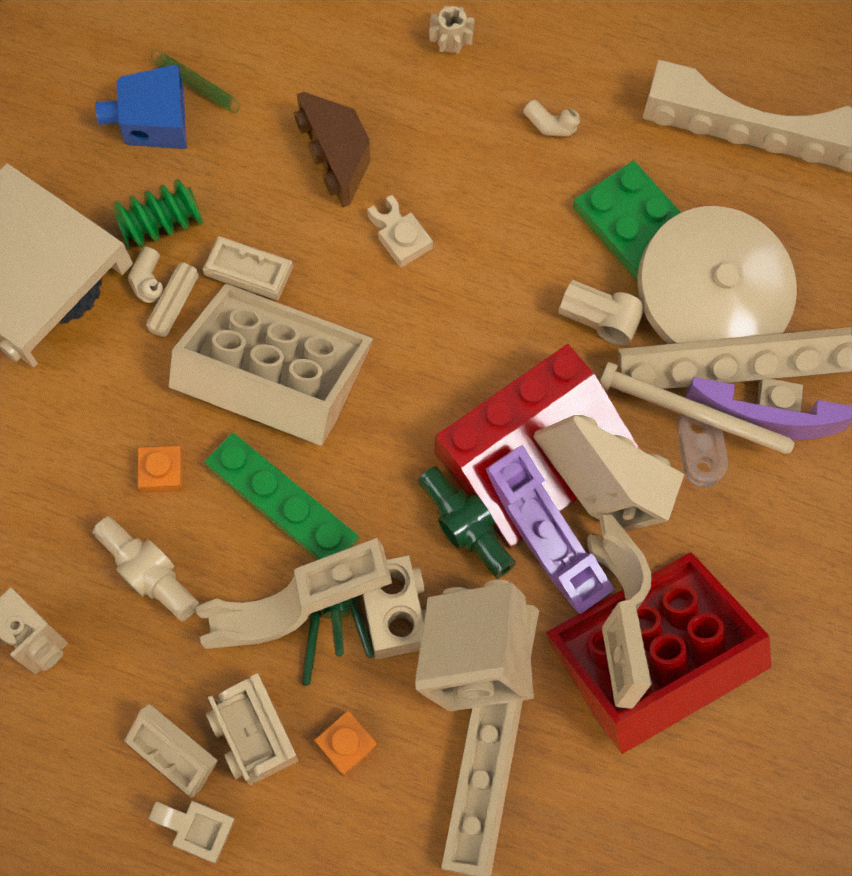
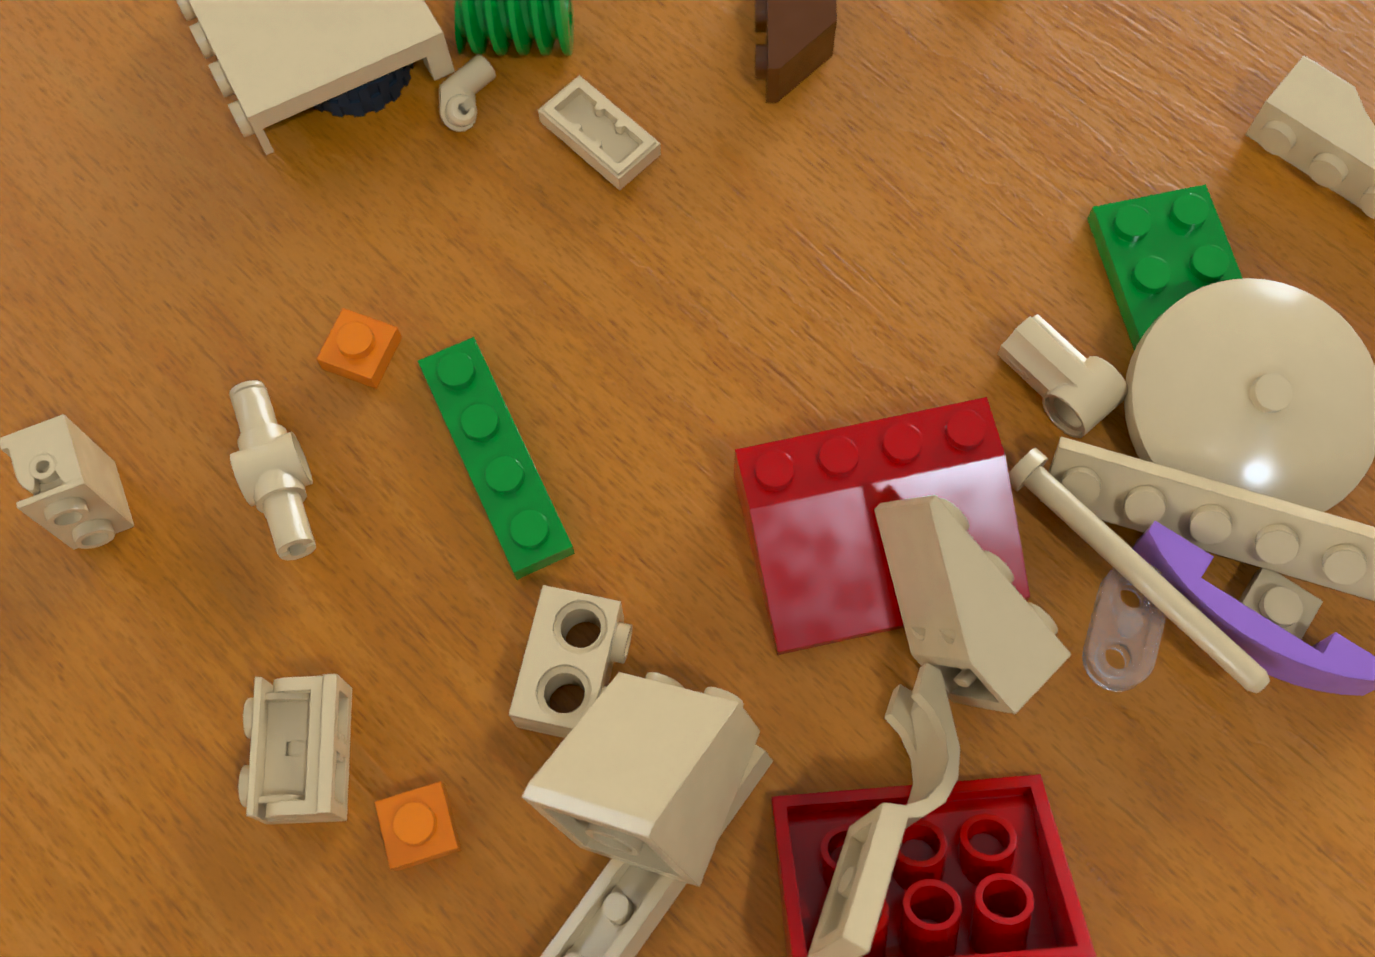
camera: 30 degrees right, 0 degrees up
(170, 750) = (180, 728): tan plate -> none
(172, 299) = (483, 136): tan axle -> none
(199, 830) = (163, 854): tan plate -> none
(269, 363) = (565, 266): tan slope -> none
(311, 589) = (471, 590): tan piece -> none
(335, 613) = (489, 621): dark green plant -> none
(400, 235) = (826, 167): tan plate -> none
(466, 522) = (729, 592): dark green pin -> none
(546, 531) = (838, 652): medium lavender slope -> none
(549, 124) = (1107, 96): tan arm -> none

